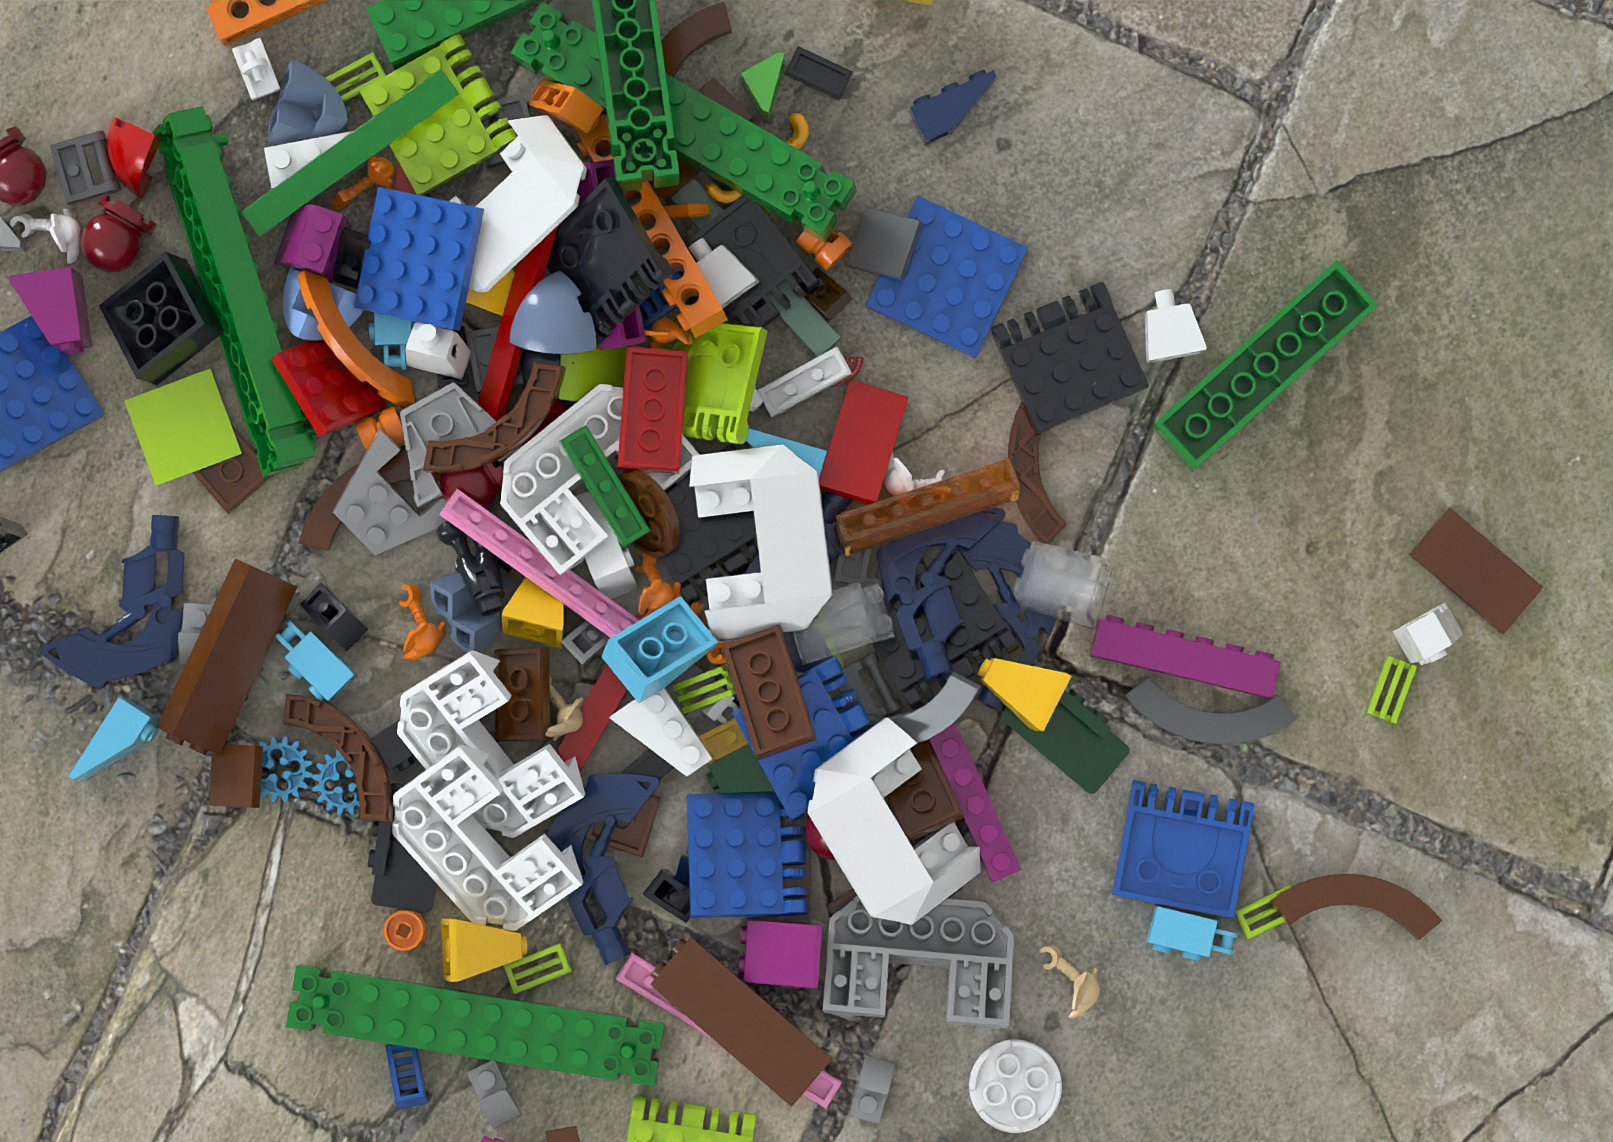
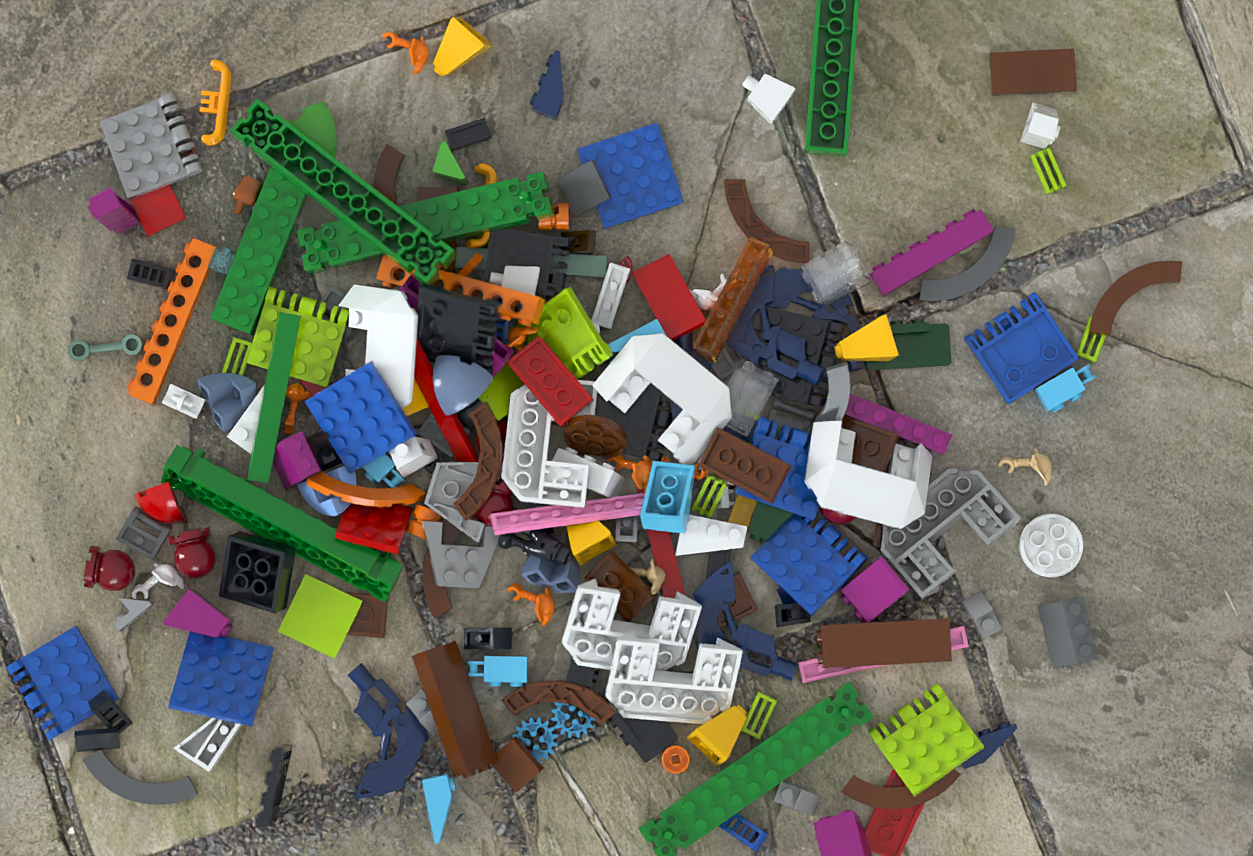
camera: 45 degrees left, 0 degrees up
(566, 105) = (358, 271): orange slope -> none
(604, 486) = (563, 442): green tile -> none
(1072, 363) = (734, 160): black hinge -> none

